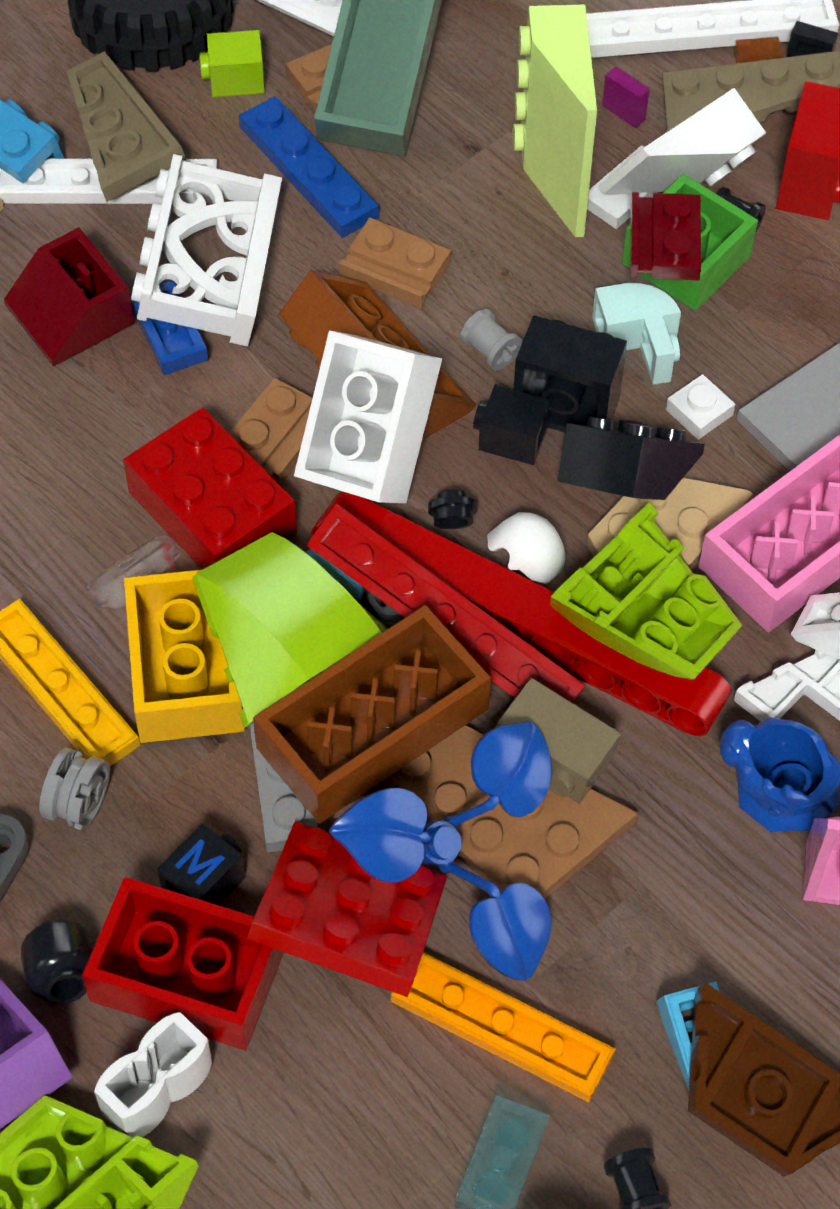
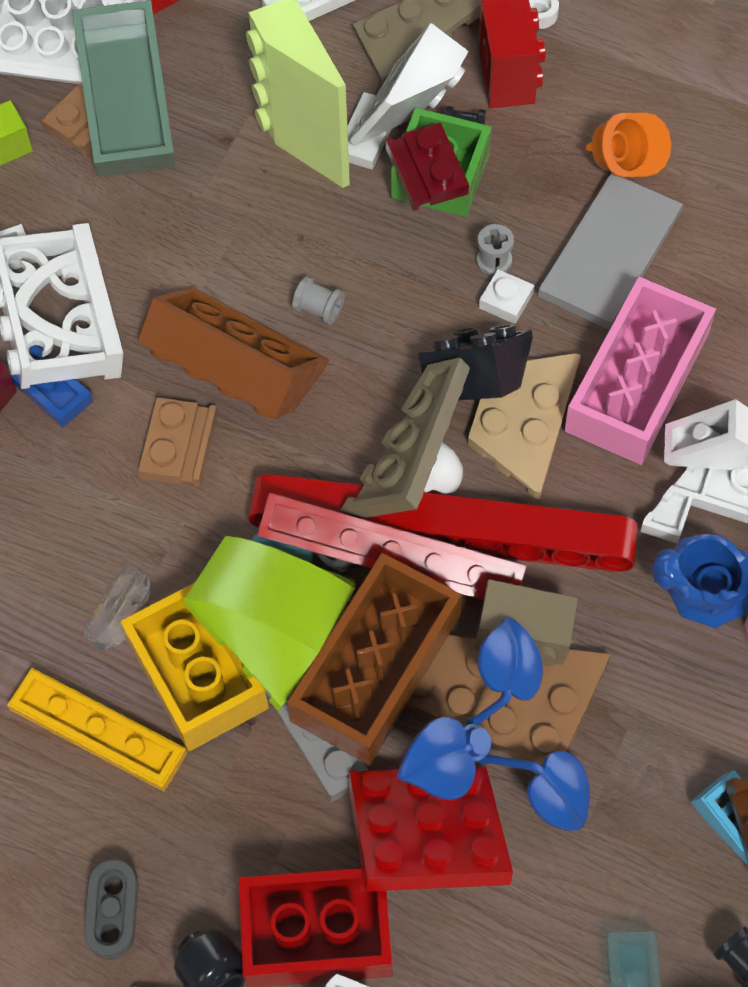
camera: 20 degrees left, 5 degrees up
(74, 789) = (156, 815): light grey wheel -> none
(204, 866) = (291, 840): black brick -> none
(207, 490) = (152, 519): red brick -> none
(308, 166) = (100, 203): blue plate -> none
(367, 417) = (258, 408): white brick -> none
(395, 262) = (209, 261): medium nougat plate -> none
(452, 510) = (353, 456): black plate -> none
(507, 1027) = (593, 871): light orange tile -> none
(512, 424) = (368, 366): black brick -> none
(512, 511) = (412, 444): none -> dark tan wing
(571, 368) = (399, 311): black brick -> none
(625, 97) = (340, 52): magenta tile -> none
(643, 318) = (429, 240): light aqua brick -> none
(648, 601) = (548, 481): lime wedge -> none
(699, 351) = (500, 249): none -> light grey bush

